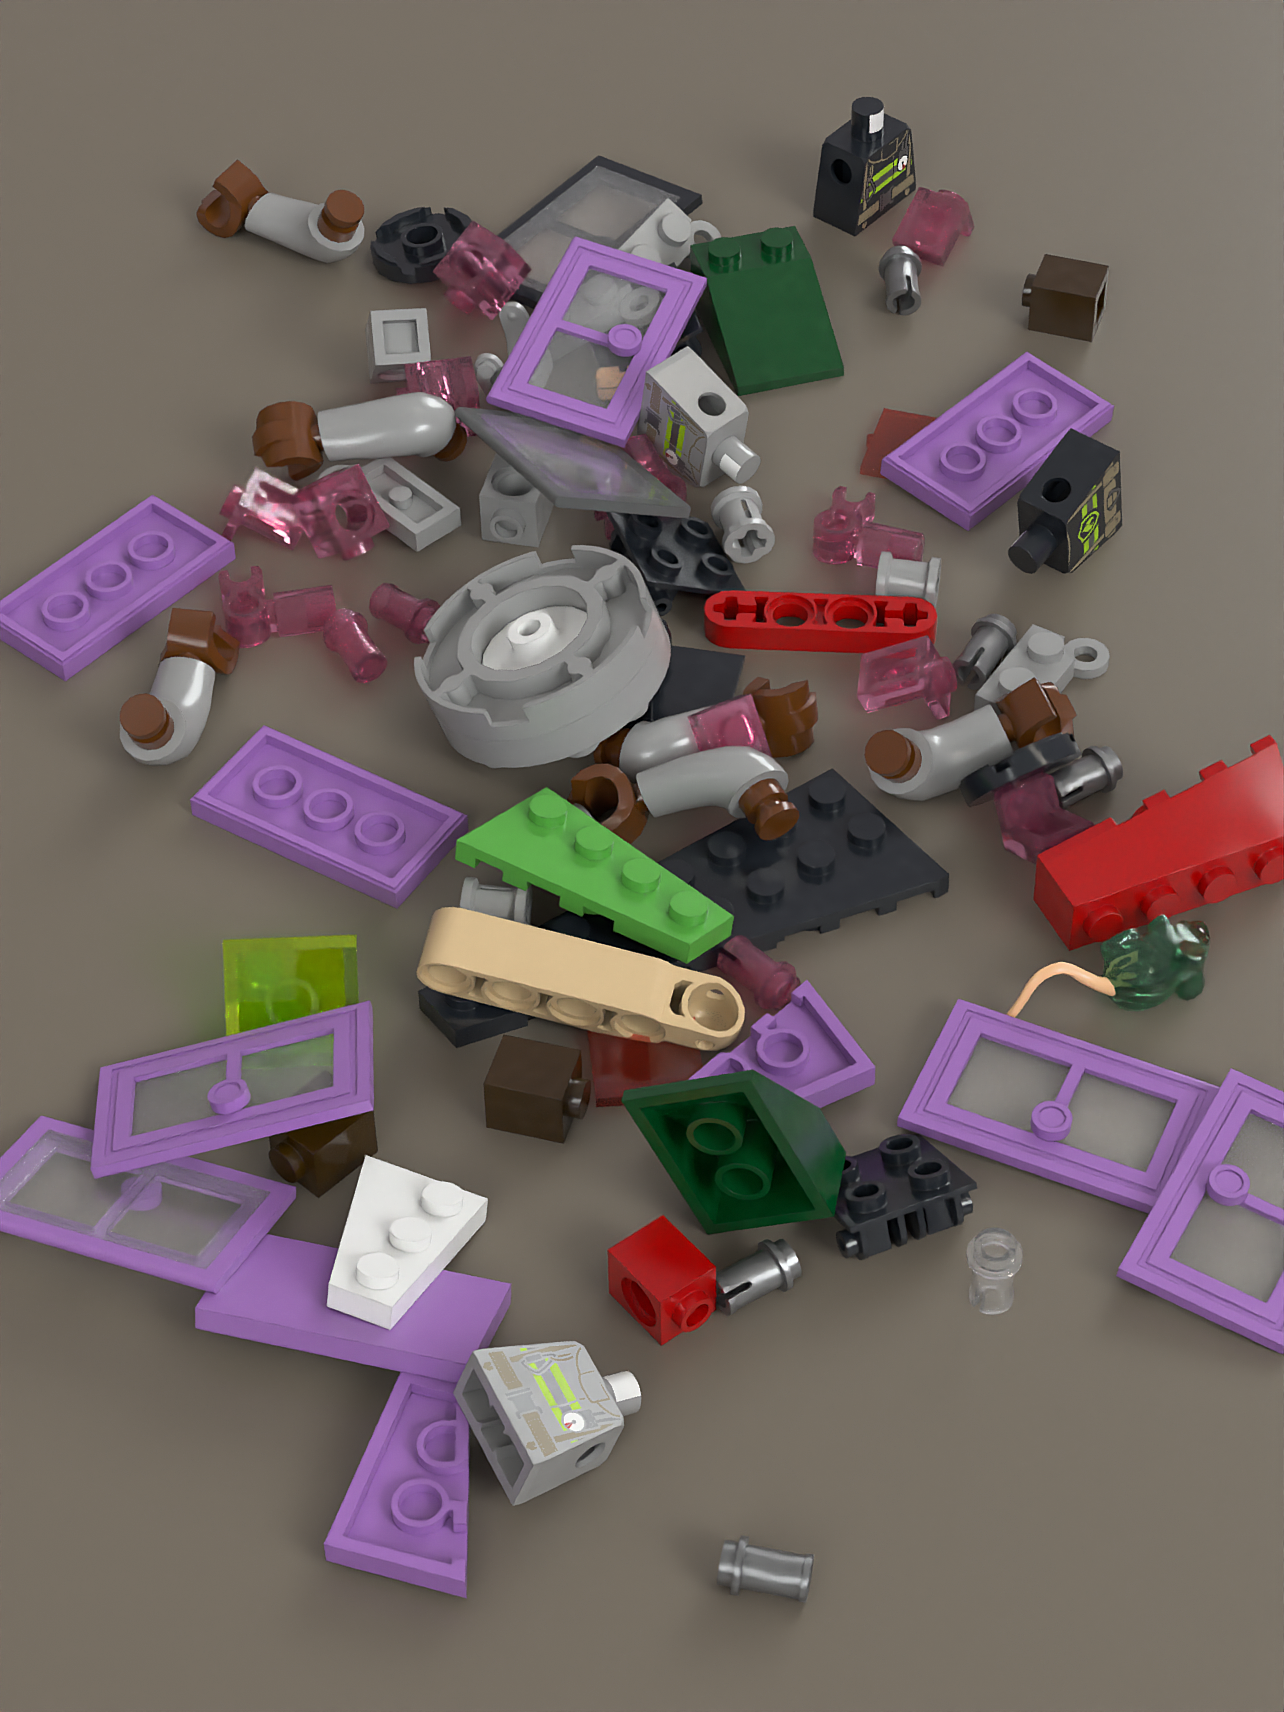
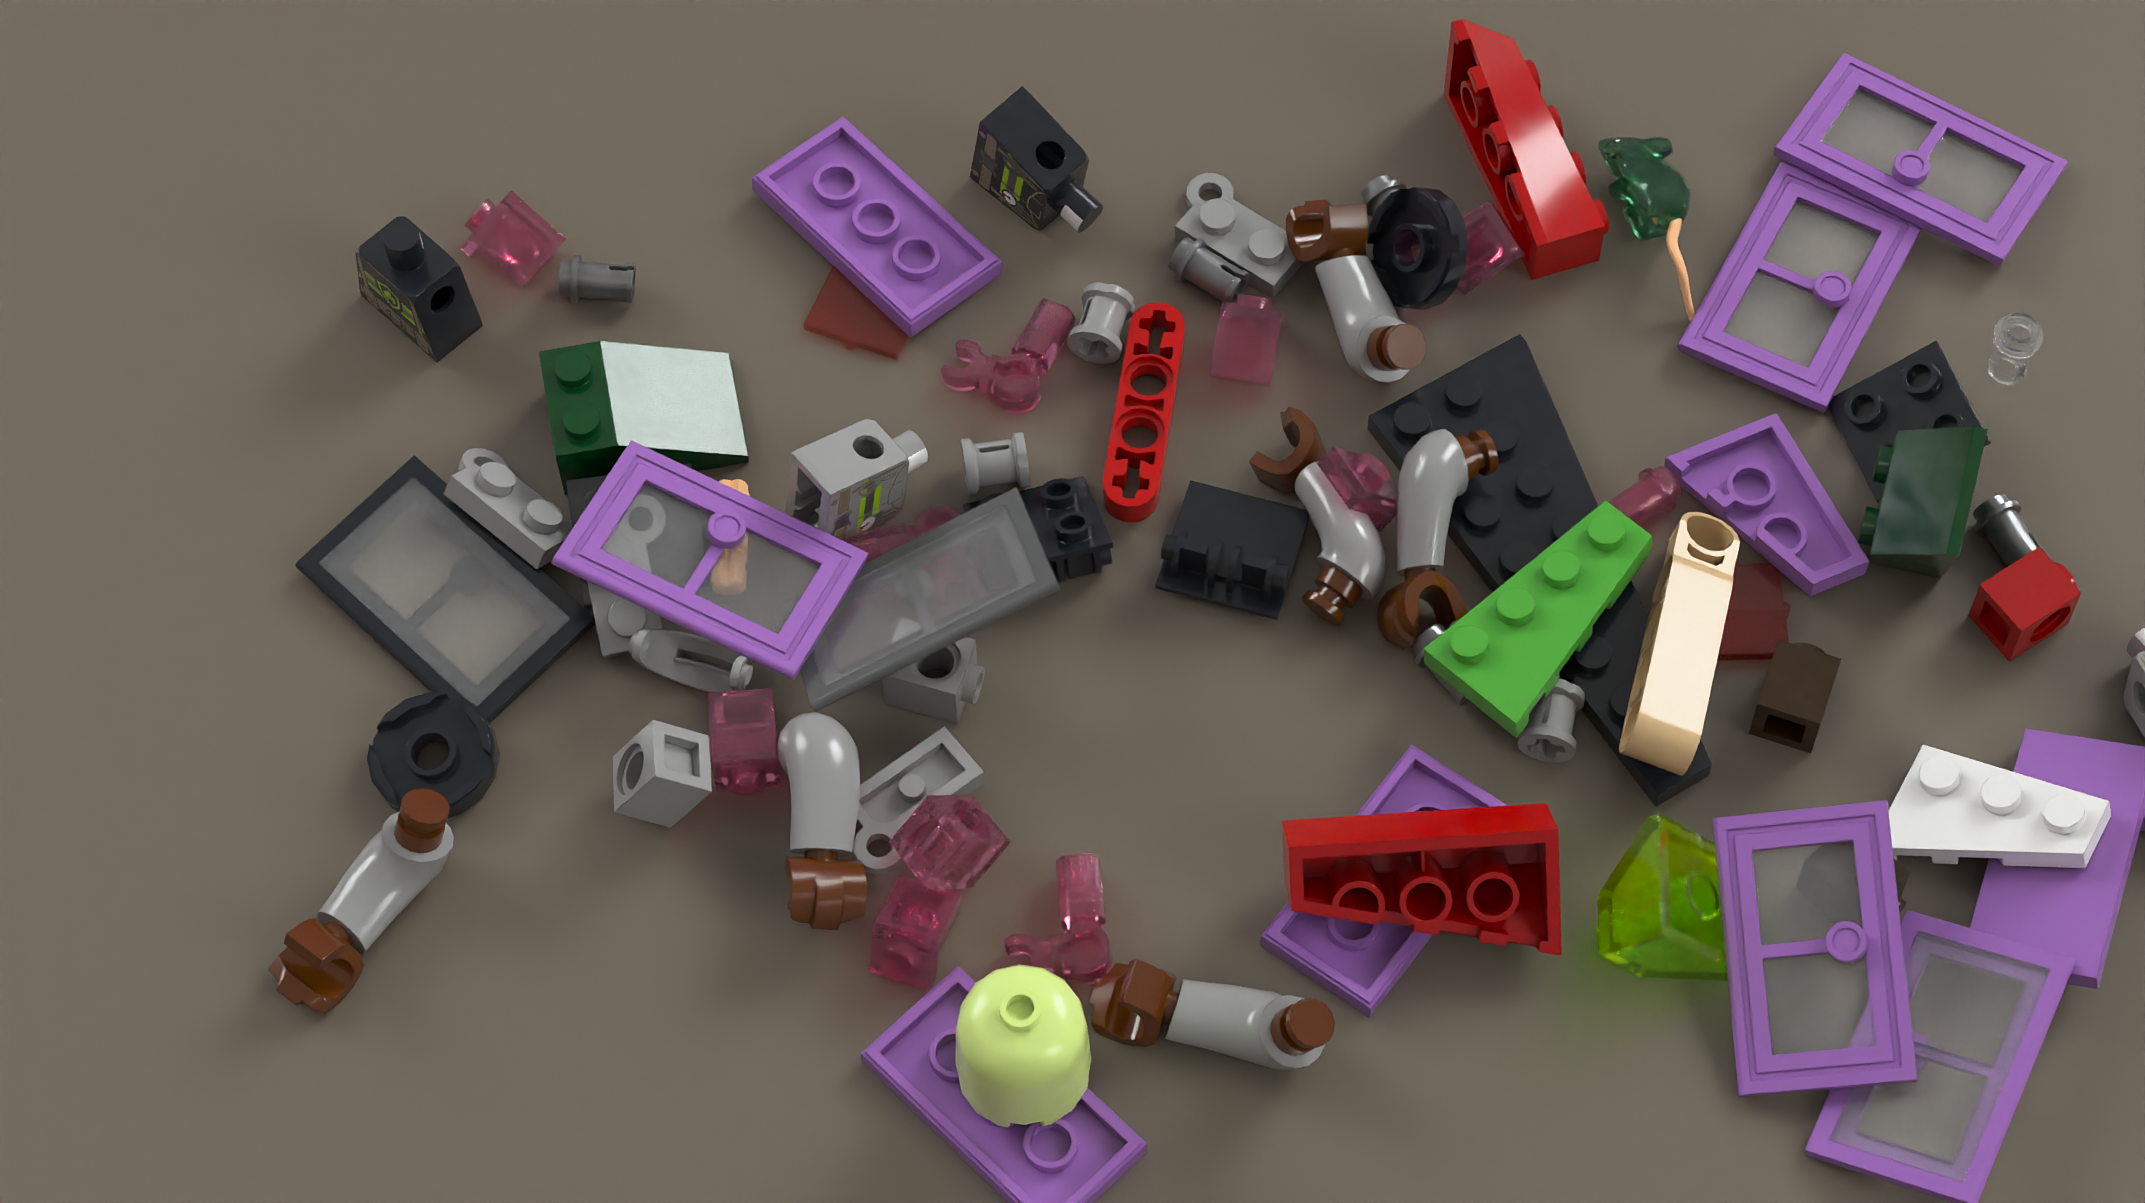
camera: 85 degrees left, 15 degrees up
(130, 549) = (1022, 1047): none -> yellowish green cylinder
(309, 805) = (1435, 870): none -> red wedge
(348, 635) = (1141, 844): clear pink pin -> none
(403, 611) = (1097, 789): clear pink pin -> none
(481, 271) = (502, 678): clear pink brick -> none
(543, 658) = (1231, 573): light grey piece -> none
(1066, 297) = (665, 129): dark brown brick -> none

